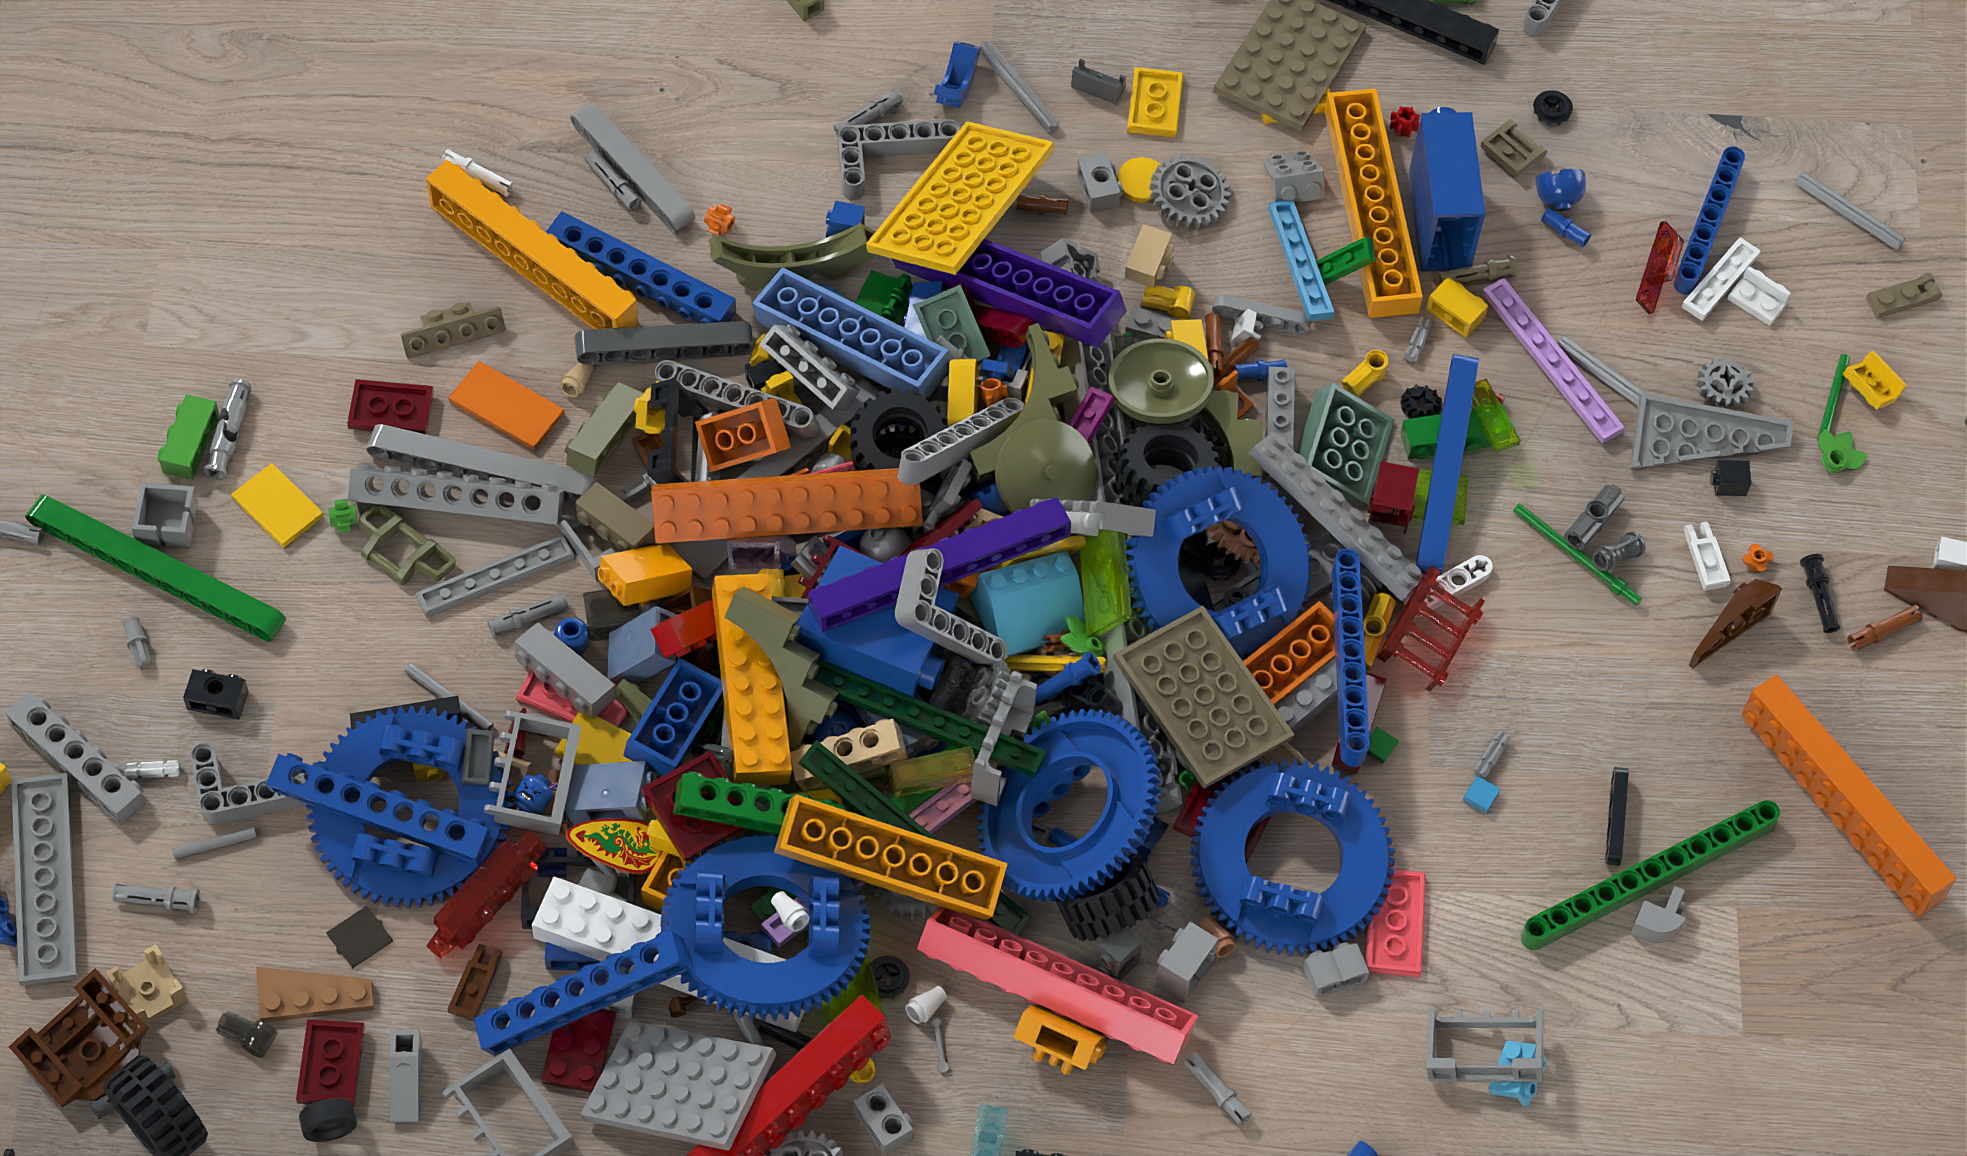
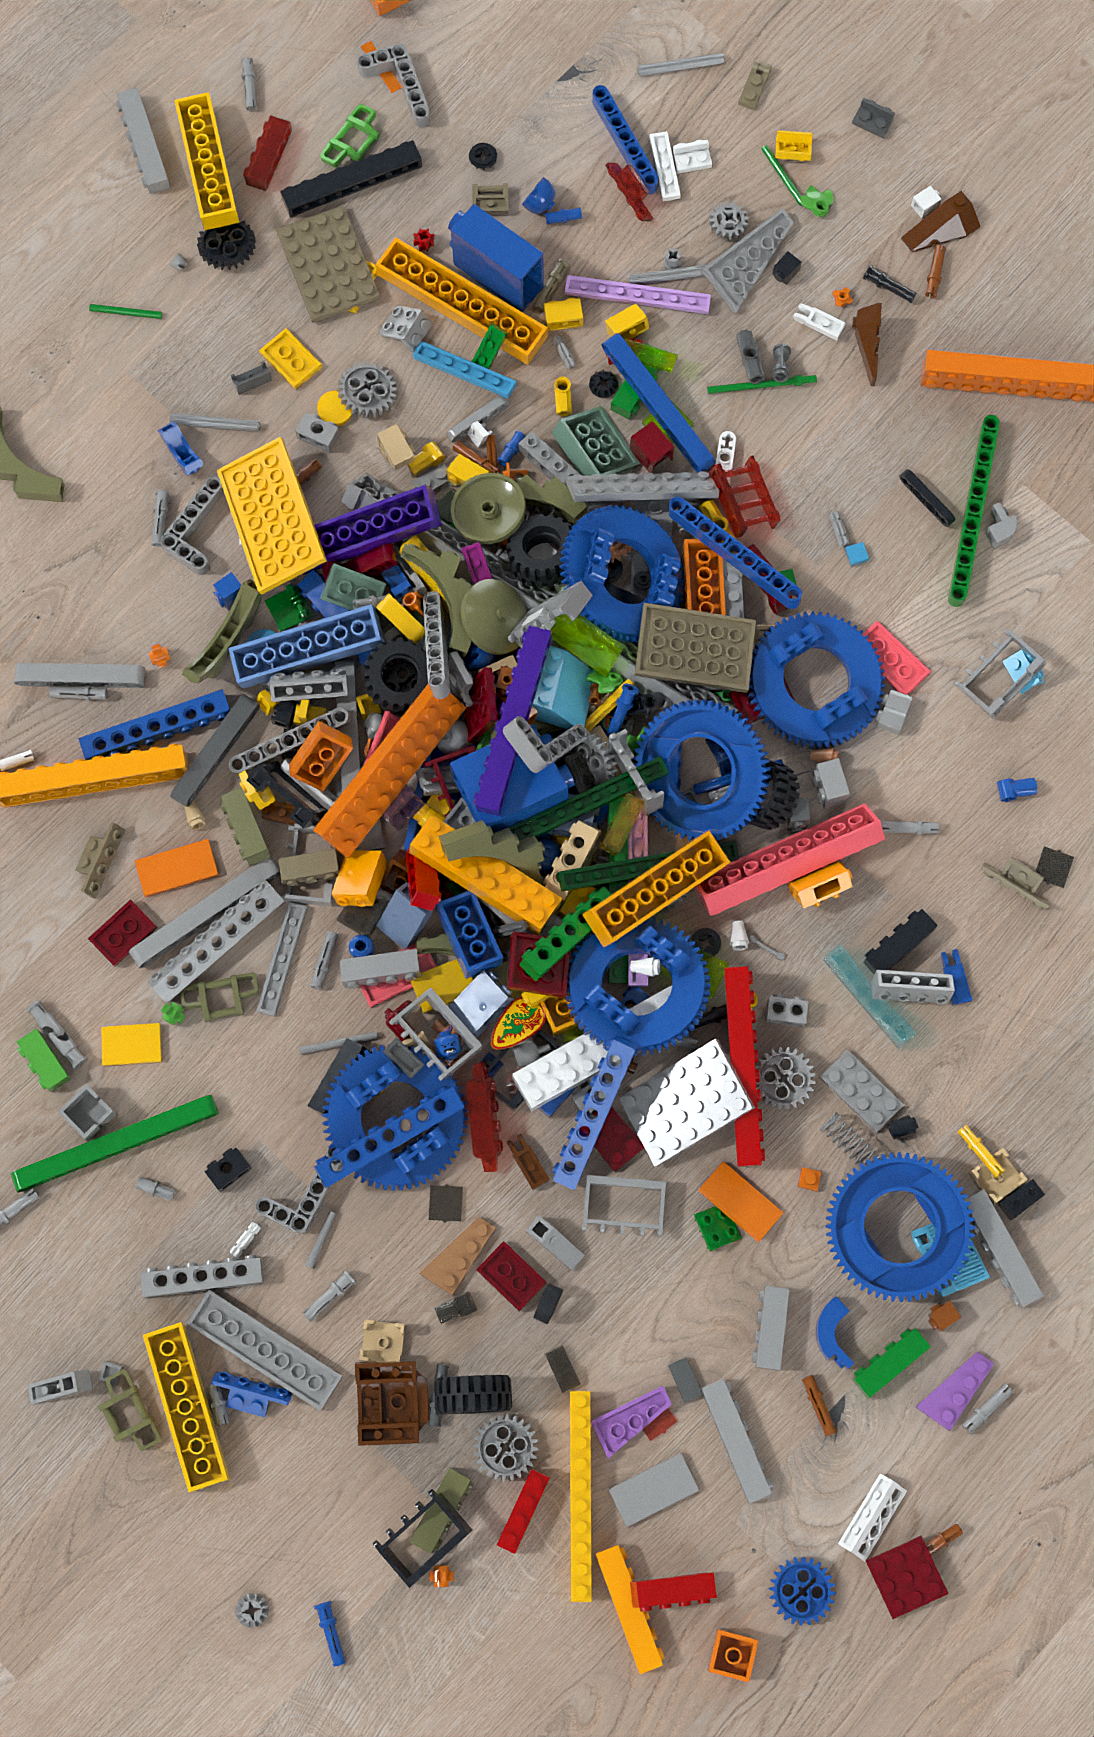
camera: 45 degrees left, 15 degrees up
(1508, 372) = (627, 323): none -> yellow brick
(1626, 360) = (672, 259): none -> light grey bush

